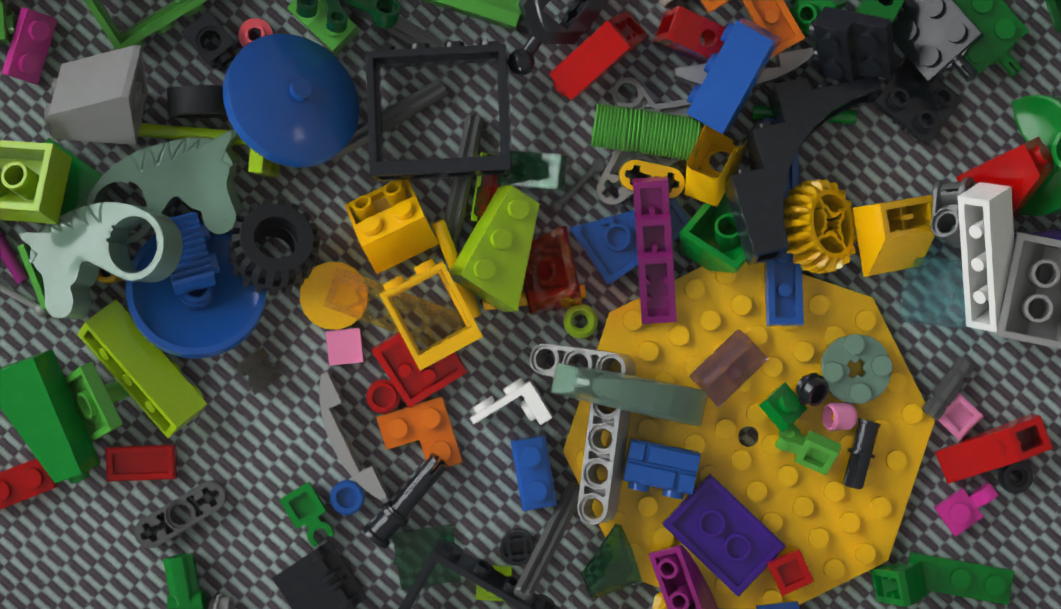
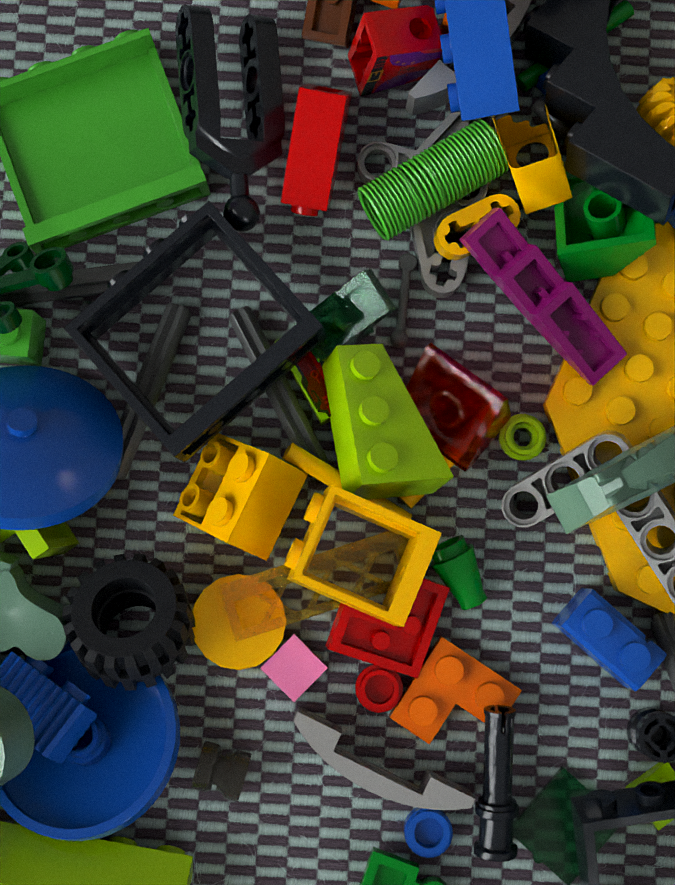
camera: 45 degrees left, 5 degrees down
(481, 366) = (458, 569): none -> green cone
(533, 405) = (519, 566): white bracket -> none
(612, 241) = (490, 327): blue wing -> none

